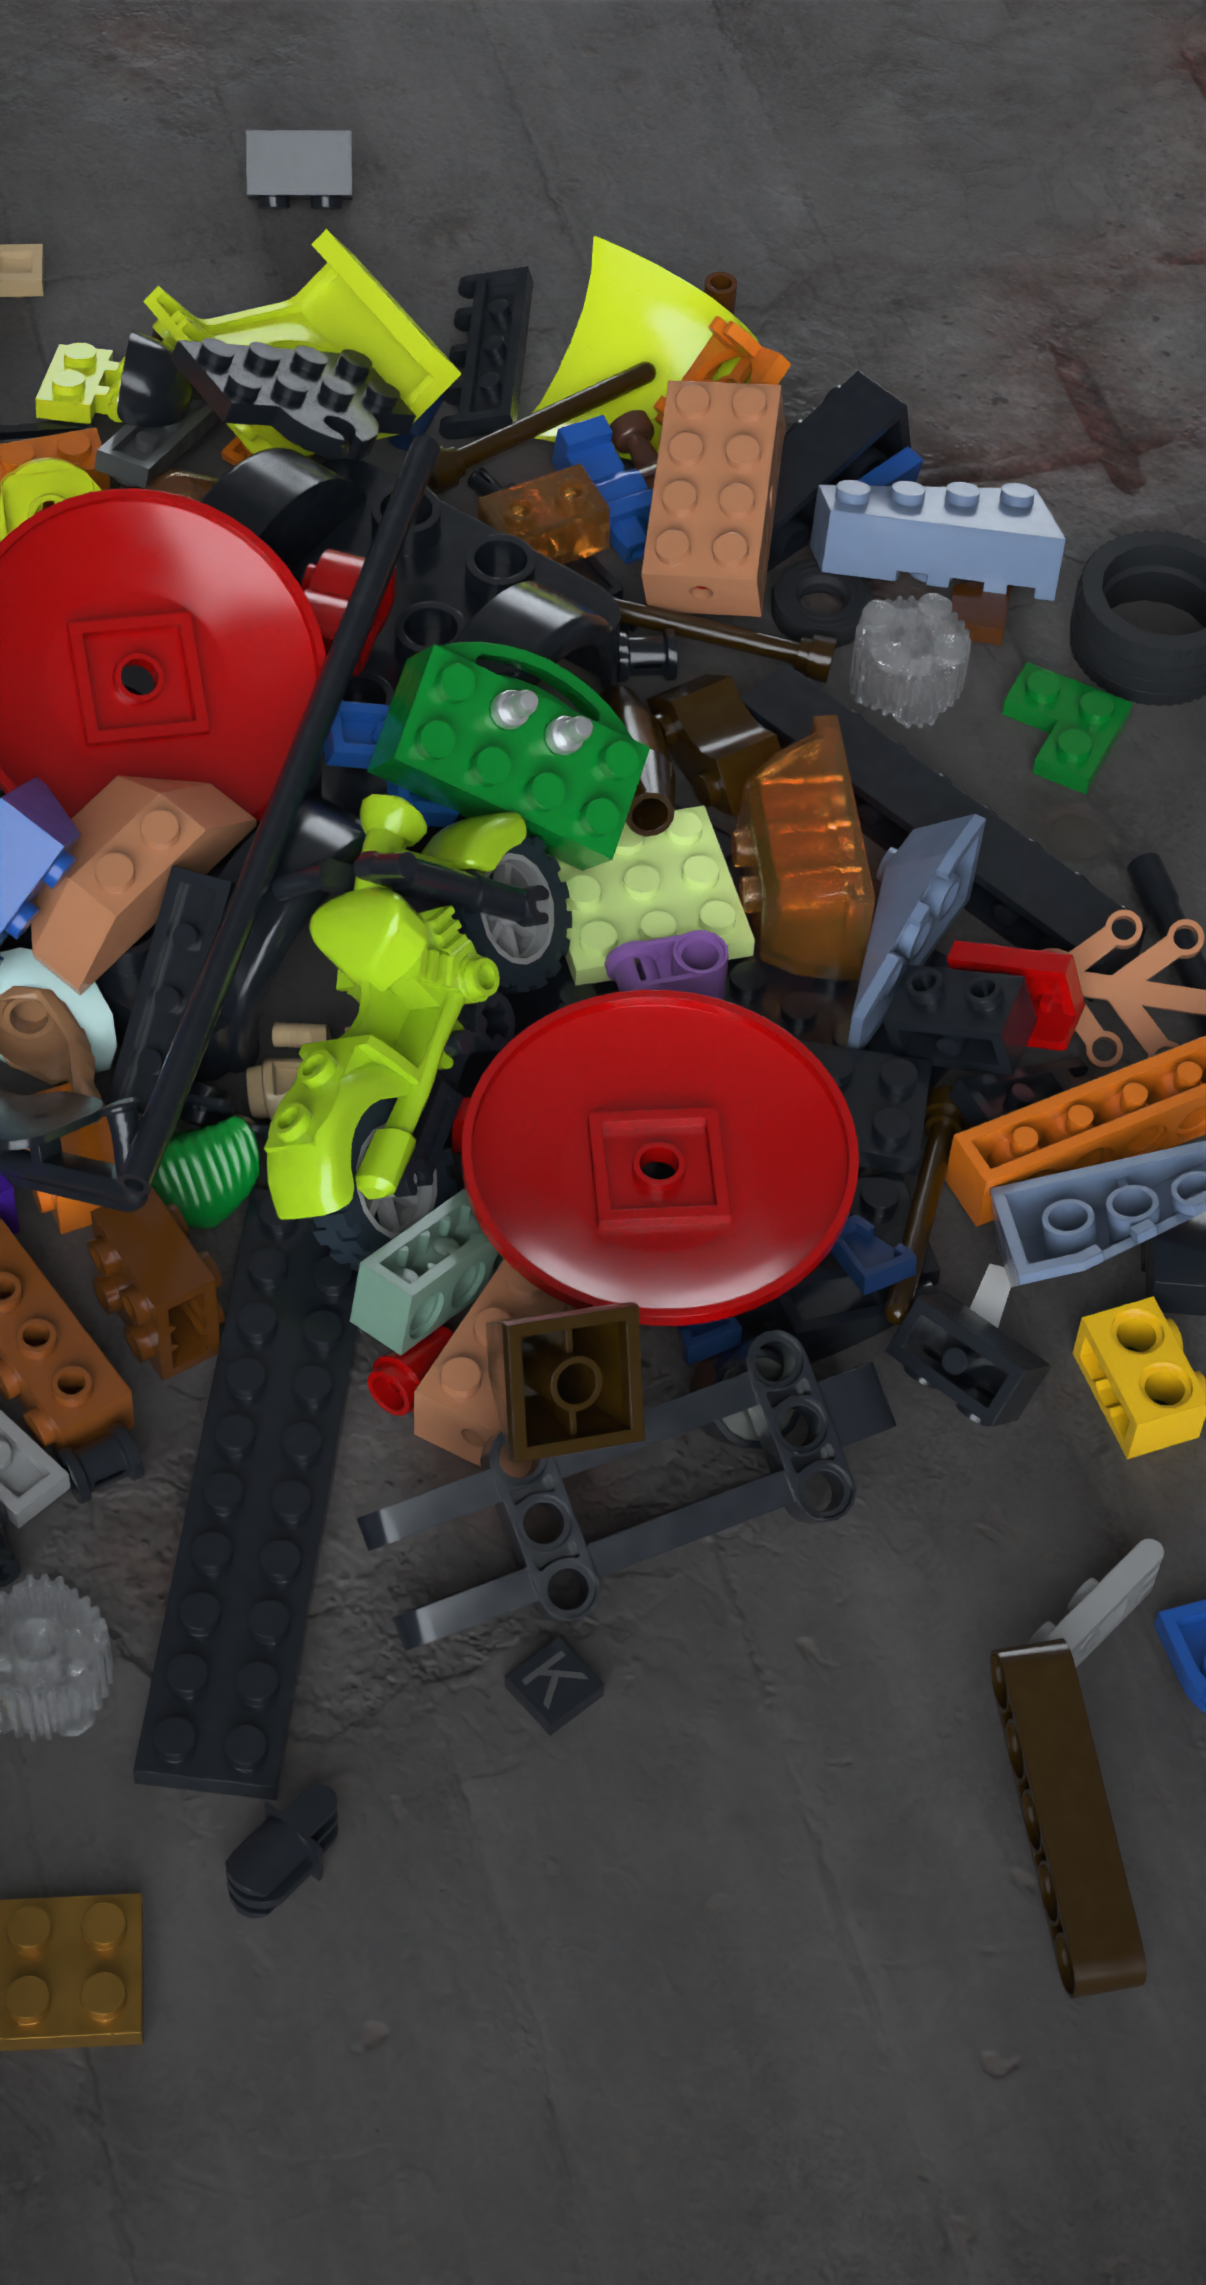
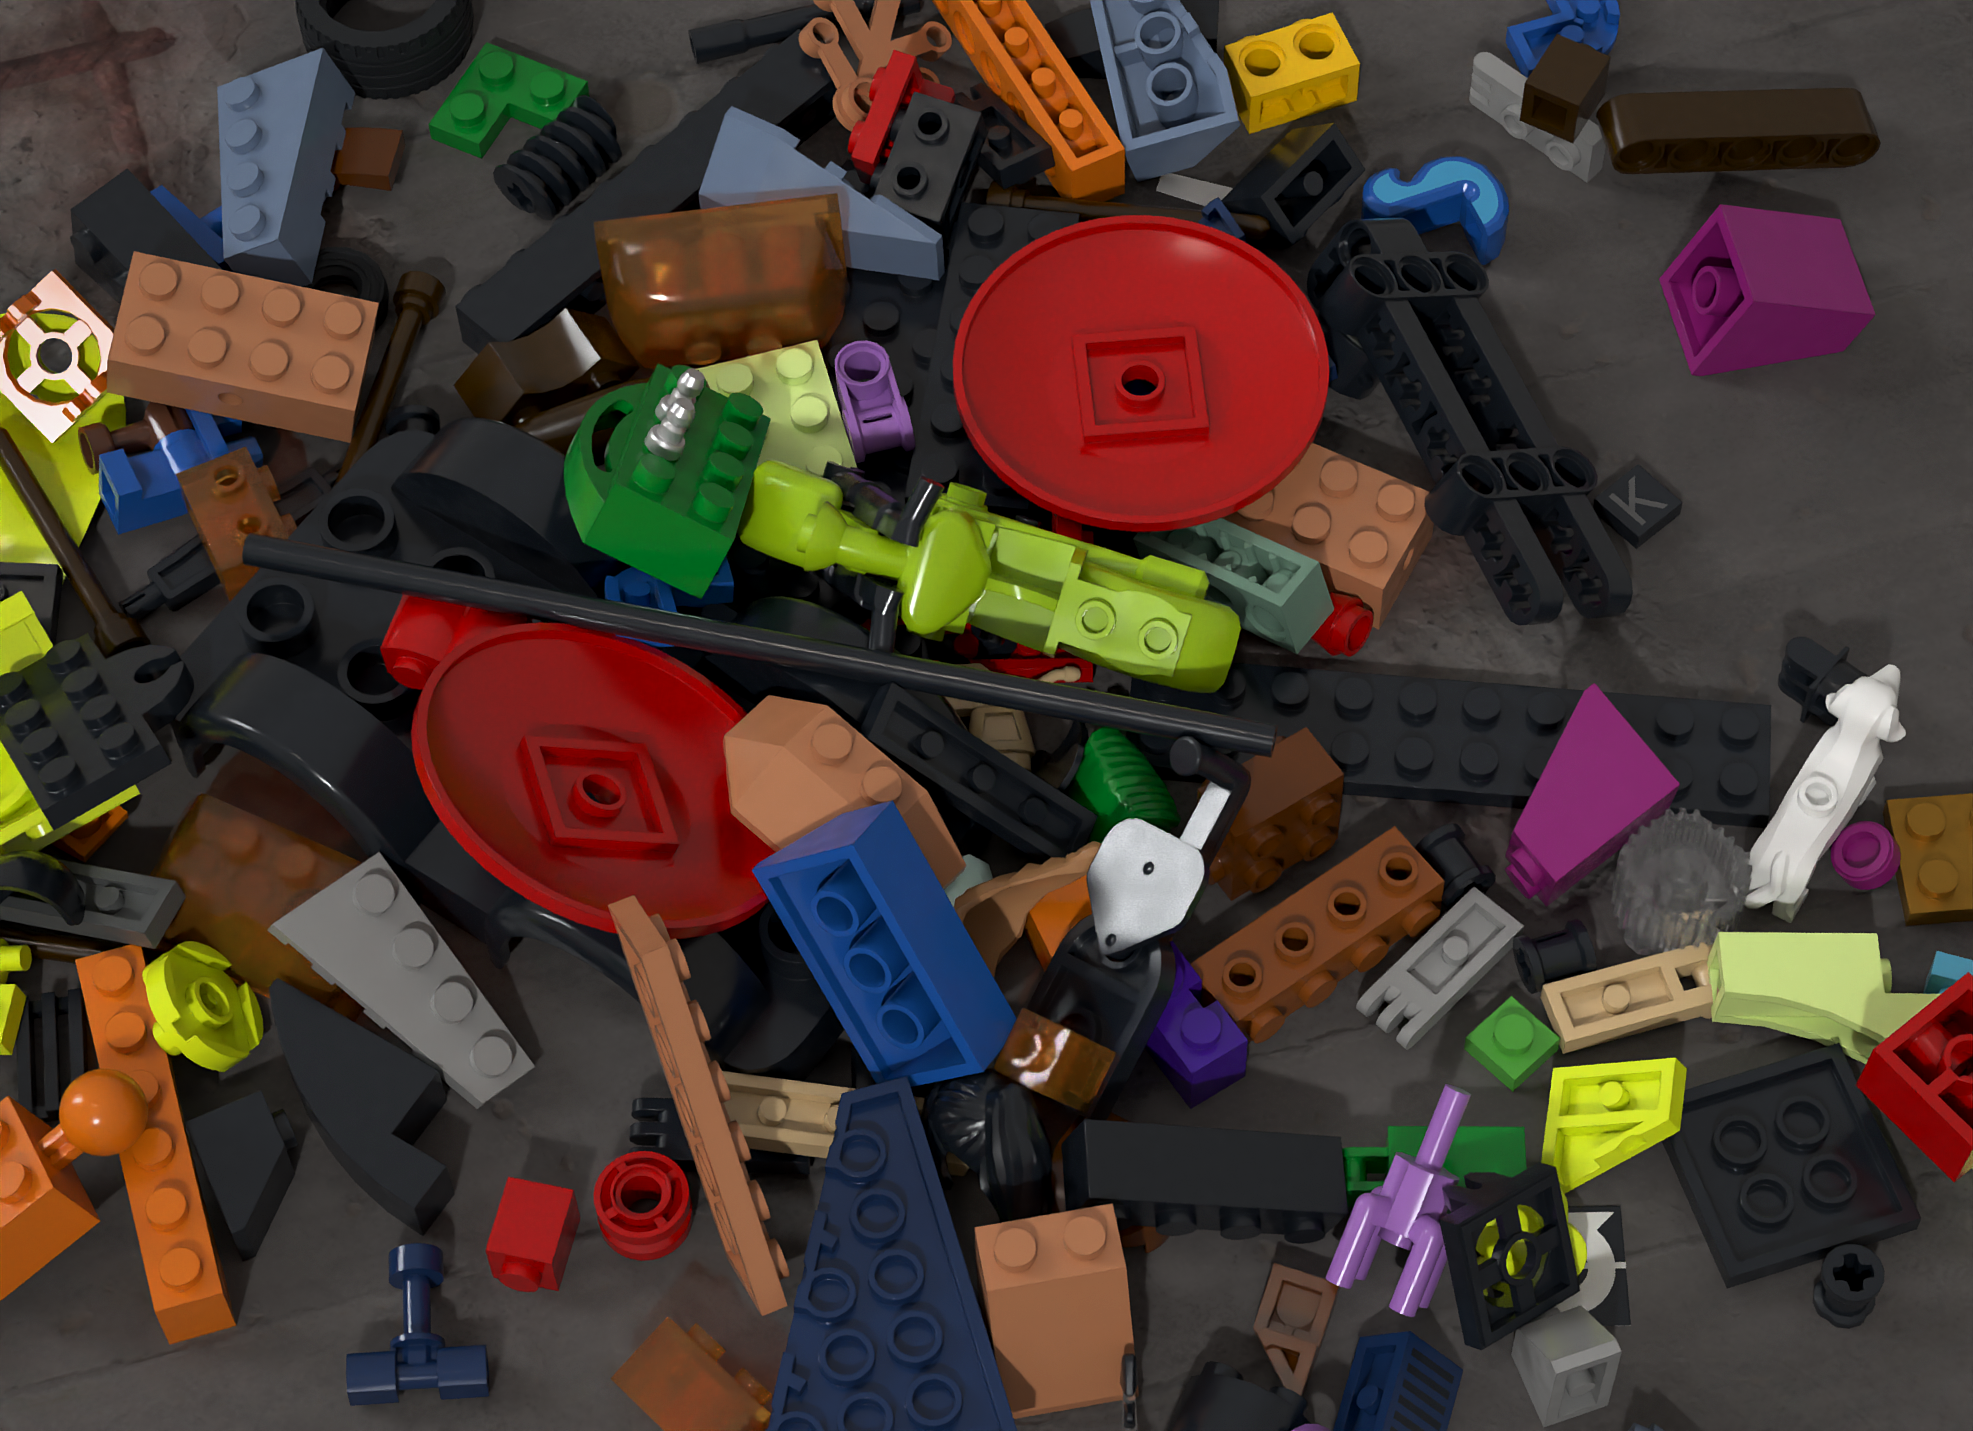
camera: 85 degrees left, 5 degrees up
(73, 1864) = (1865, 855): none -> magenta tile
(133, 1546) = (1586, 801): none -> magenta slope
(135, 1809) = (1825, 792): none -> white animal
(567, 1380) = (1413, 431): dark brown slope -> none
(842, 1842) = (1764, 290): none -> magenta slope
(910, 658) = (435, 210): clear brick -> none
(973, 1511) = (1441, 195): none -> blue animal
(975, 755) = (560, 159): none -> black piece
(1094, 1608) = (1565, 88): none -> dark brown brick

